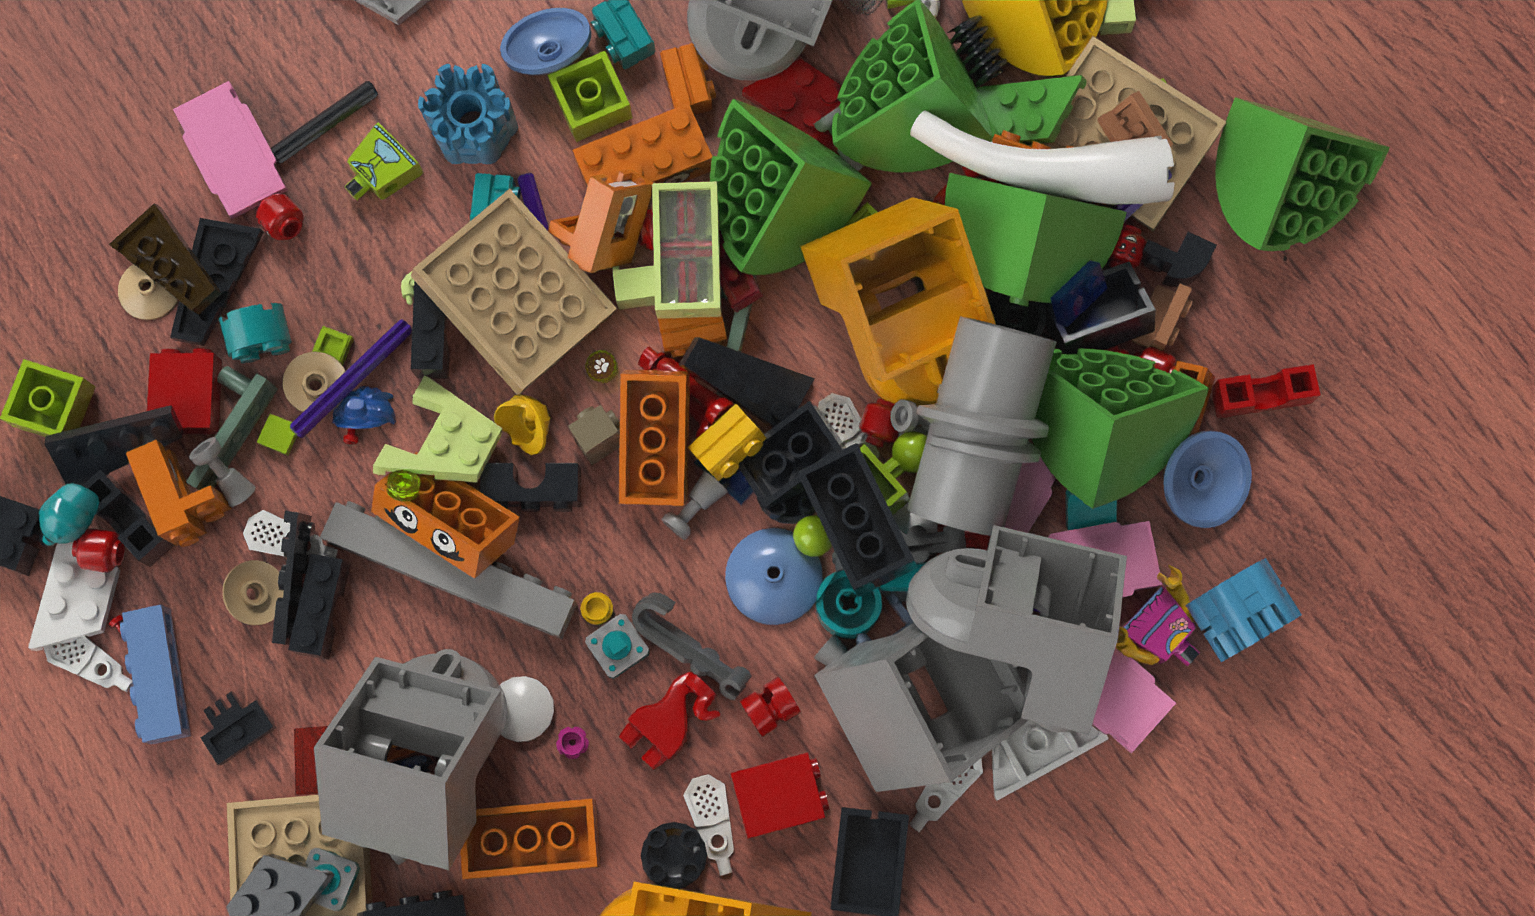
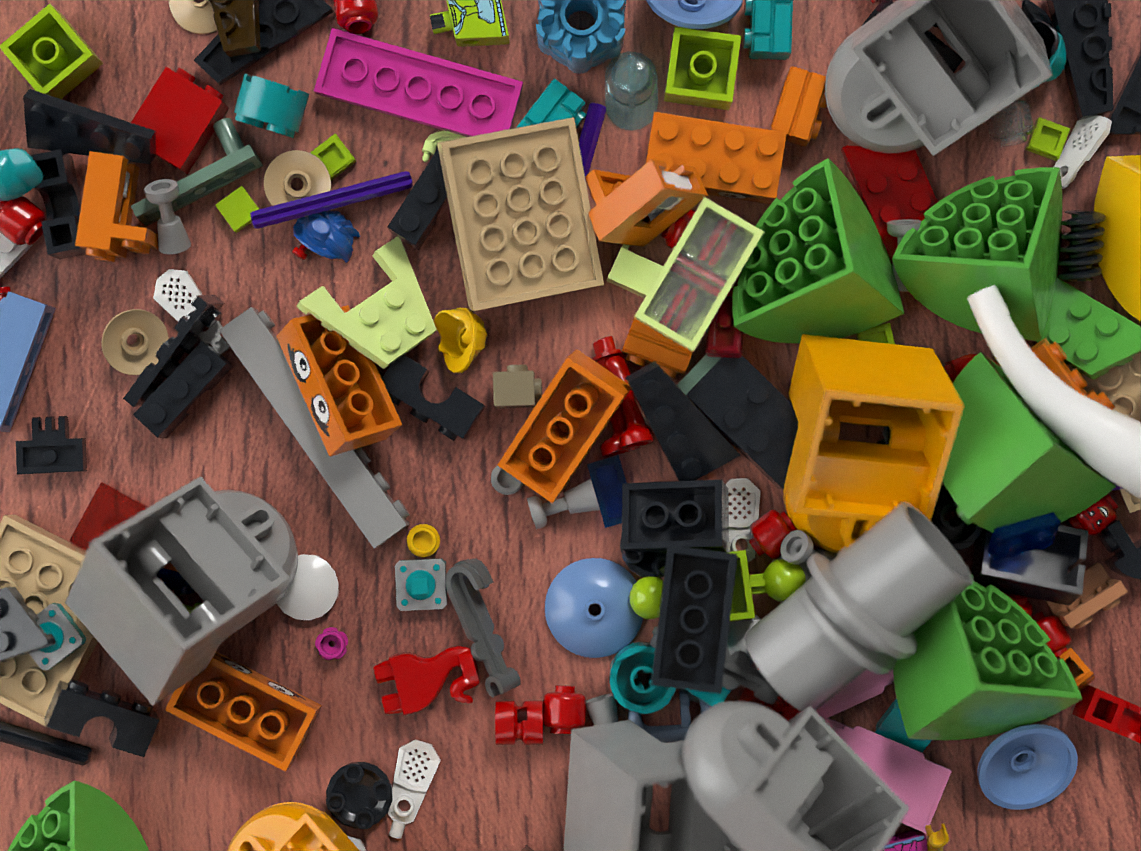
camera: 30 degrees right, 10 degrees up
(363, 249) = (416, 86): none -> dark pink plate
(403, 485) = (315, 336): clear neon green tile -> none
(544, 150) = (631, 90): none -> clear light blue piece
(601, 366) = (559, 325): tile -> none
(635, 516) = (504, 482): none -> light grey tile
(727, 443) = (625, 472): yellow brick -> none
(779, 795) = (480, 802): red brick -> none
(798, 672) = (564, 710): none -> red head
(801, 339) = (749, 415): none -> black brick

